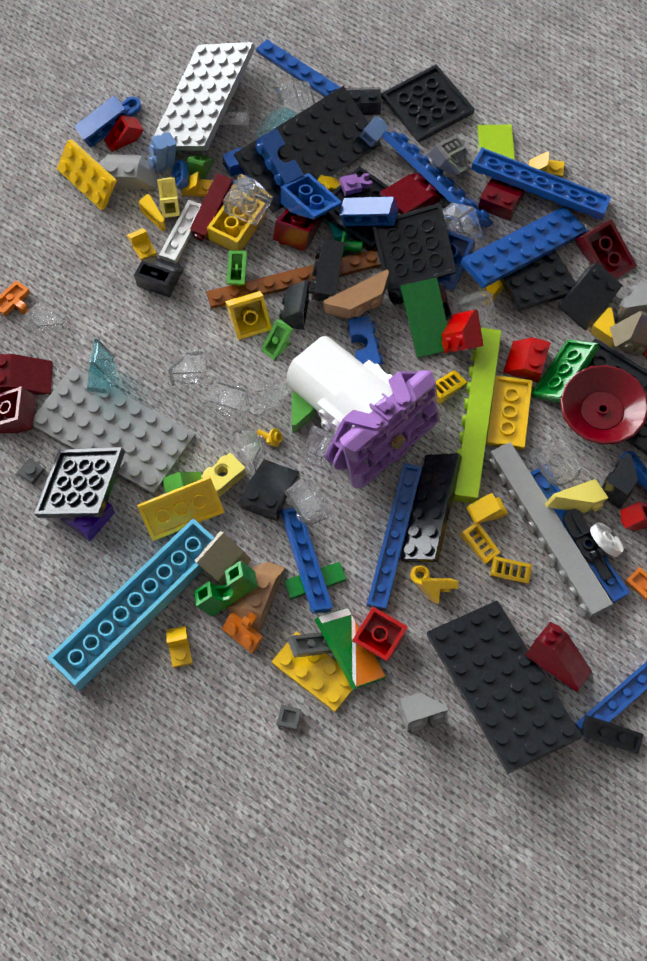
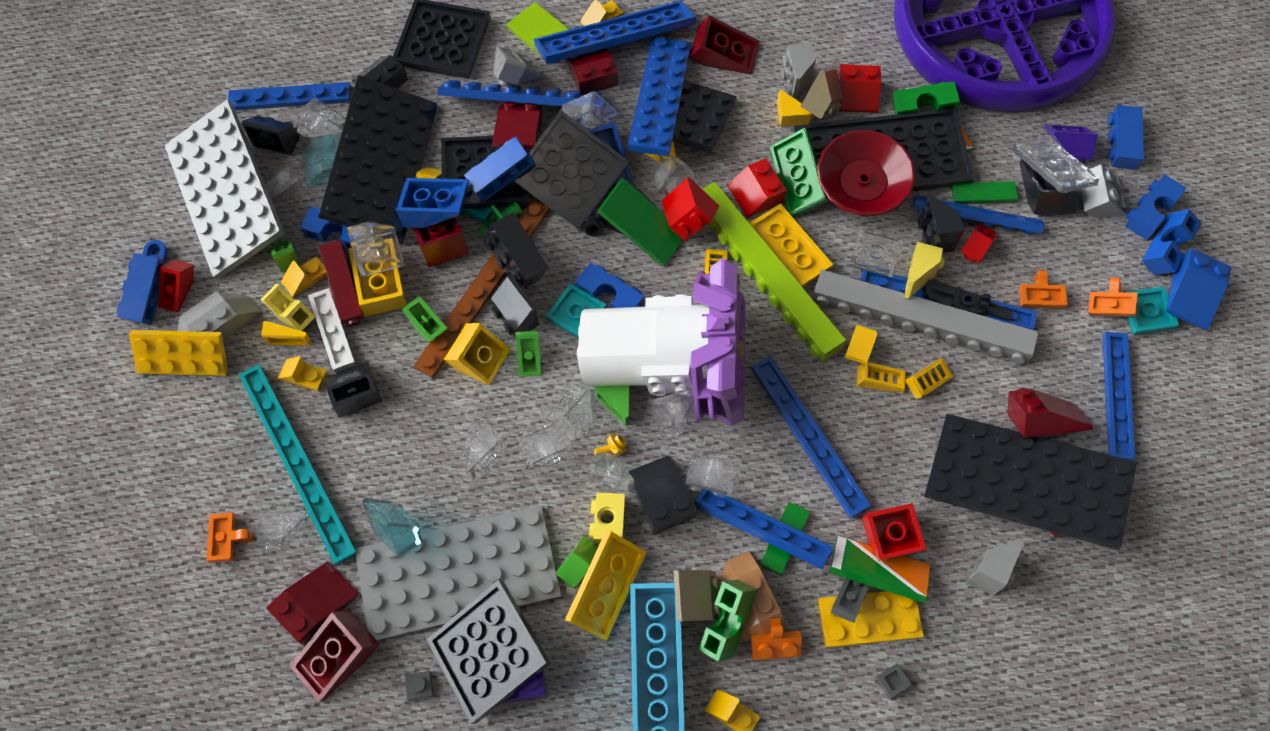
camera: 45 degrees left, 0 degrees up
(88, 293) = (298, 465): none -> teal plate
(162, 152) = (238, 270): medium blue brick -> none
(180, 172) = (270, 274): blue plate -> none
(262, 84) = (271, 134): none -> black slope
(268, 146) = (350, 183): blue arch -> none
(336, 331) = (568, 309): none -> teal plate
(353, 184) = (454, 158): medium lavender plate -> none
(358, 298) = (569, 253): medium nougat wedge -> none
(373, 131) = (425, 96): medium blue brick -> none
(422, 569) = (866, 444): yellow plate -> none
(431, 508) = (817, 384): black plate -> none
(433, 586) = (889, 448): yellow slope -> none
(590, 295) = (752, 93): black slope -> none
(604, 538) = (977, 283): white tile -> none
(611, 734) = (1148, 439): black plate -> none

